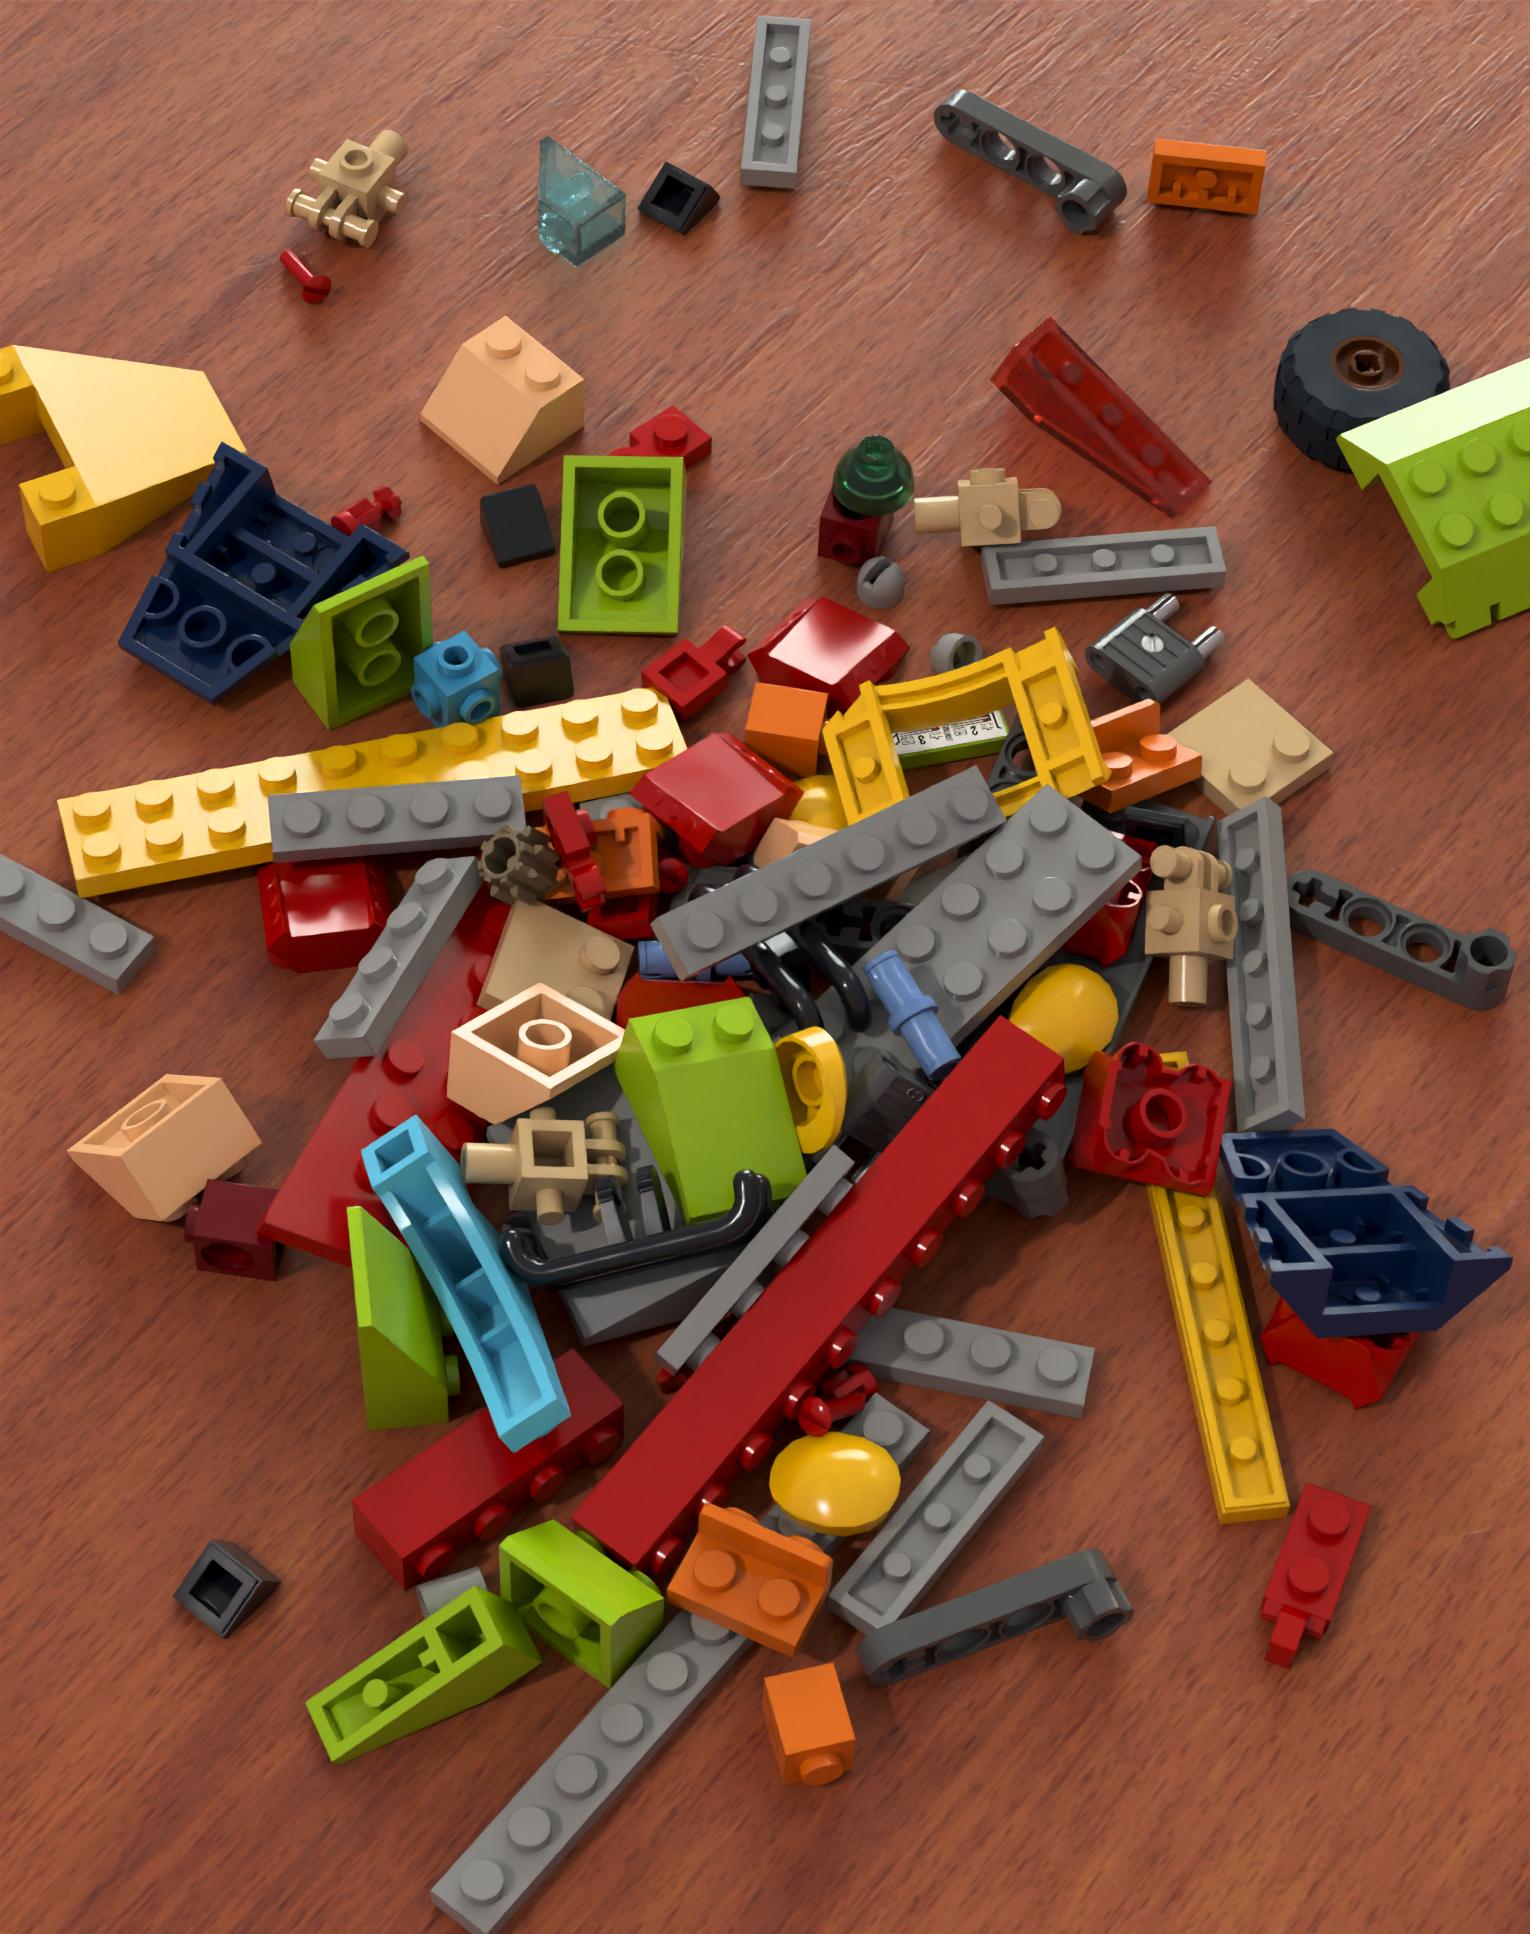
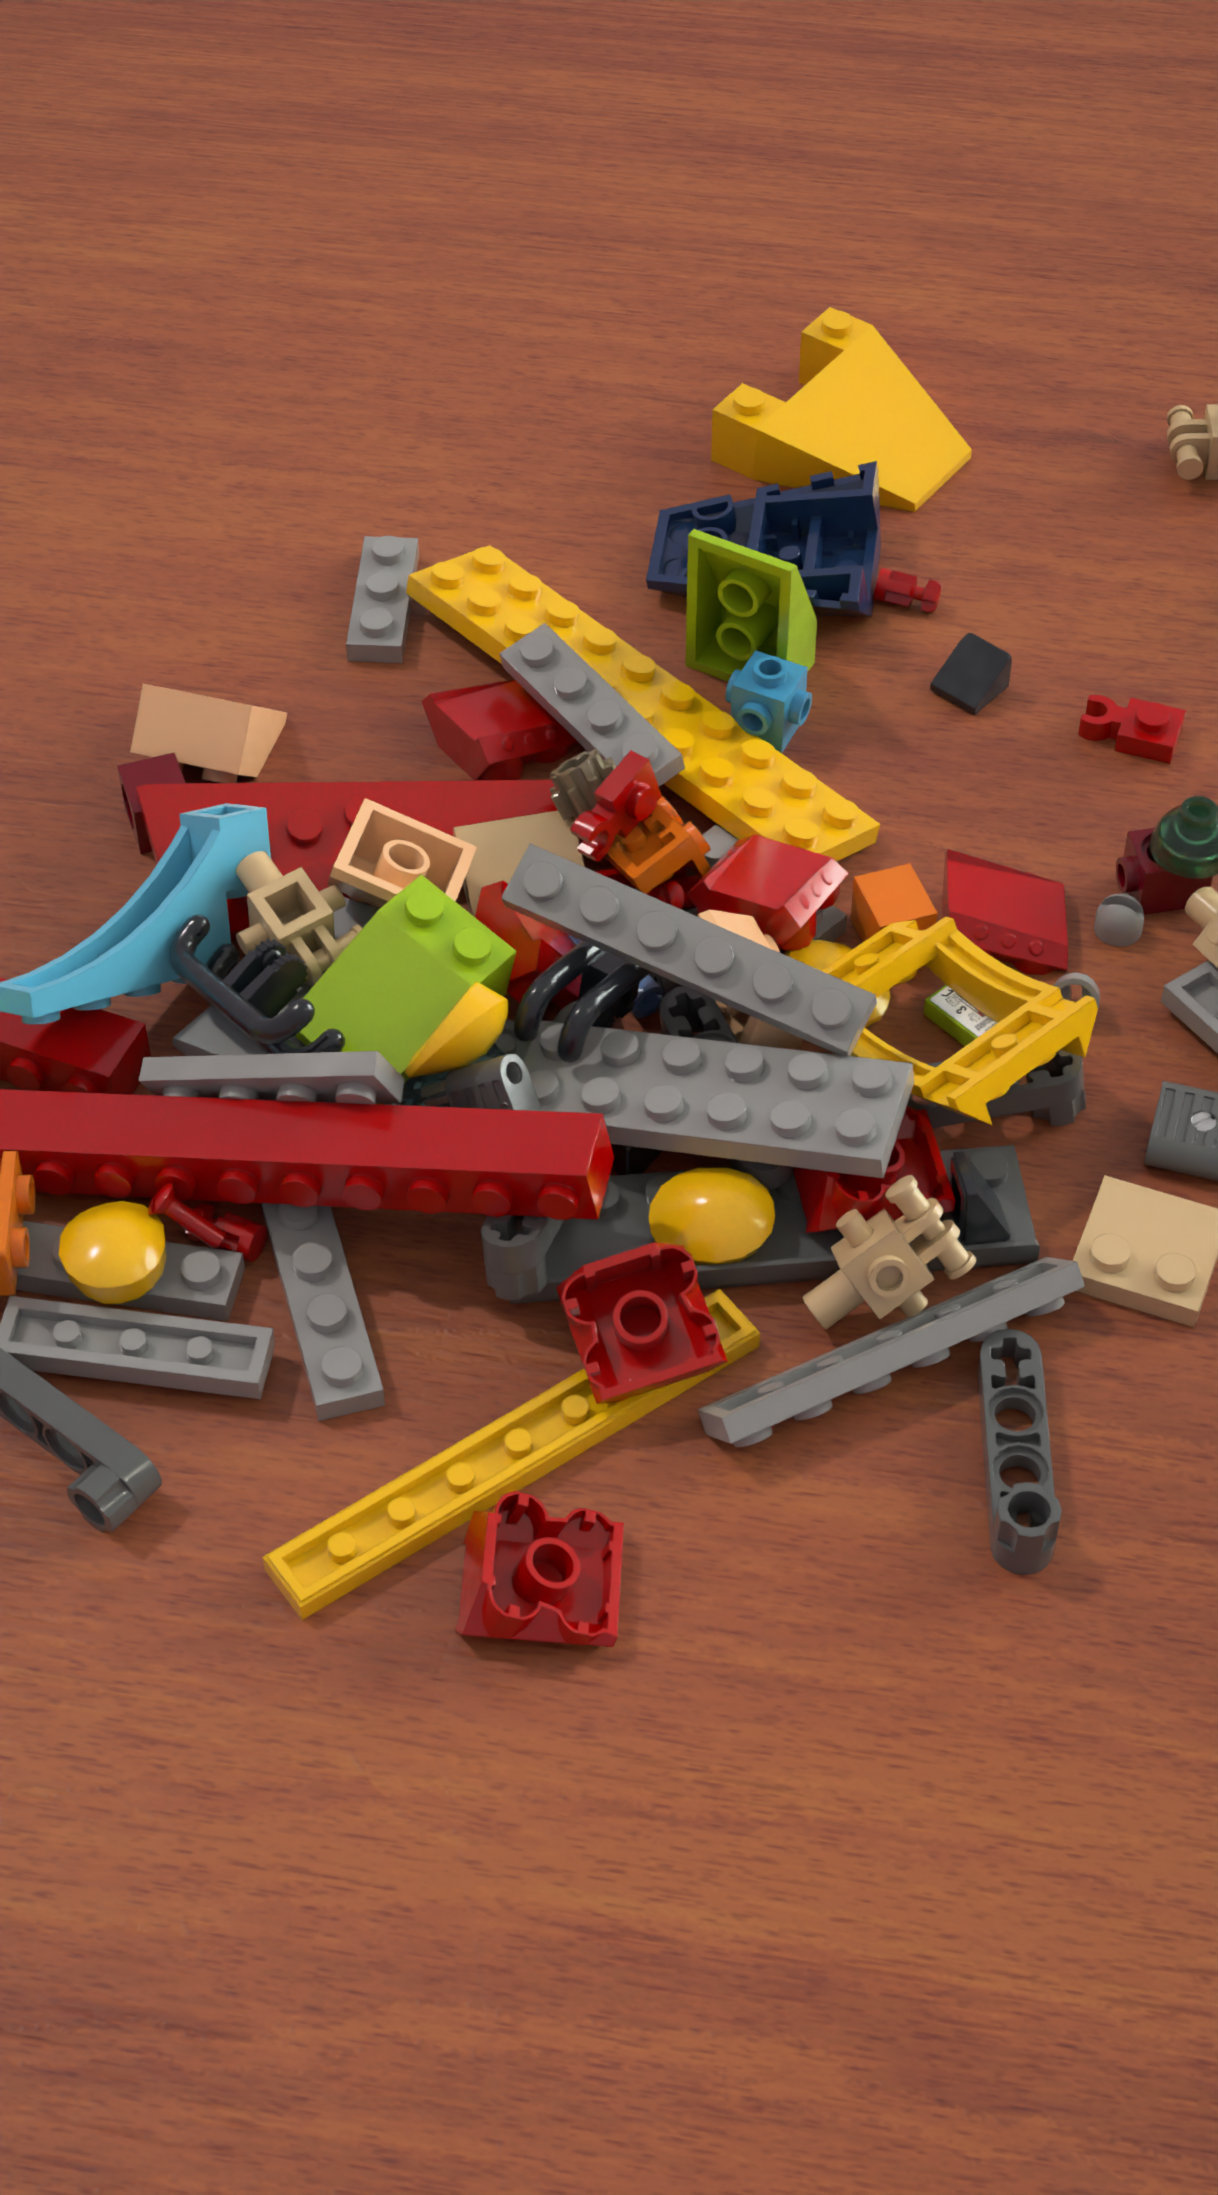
camera: 65 degrees right, 5 degrees down
(314, 287) = (1111, 468): red piece -> none
(398, 1331) = (76, 870): lime slope -> none
(400, 958) = (431, 765): light grey plate -> none
(505, 401) = (1091, 612): light nougat slope -> none
(537, 671) = (839, 750): black slope -> none
(622, 545) = (1003, 736): lime slope -> none
(693, 674) = (907, 834): red plate -> none
(912, 1015) = (592, 1070): medium blue pin -> none
(1139, 758) = (1047, 1147): orange bracket -> none
(1311, 1569) = (240, 1655): red hinge -> none
(1347, 1241) = (595, 1508): dark blue wedge -> none

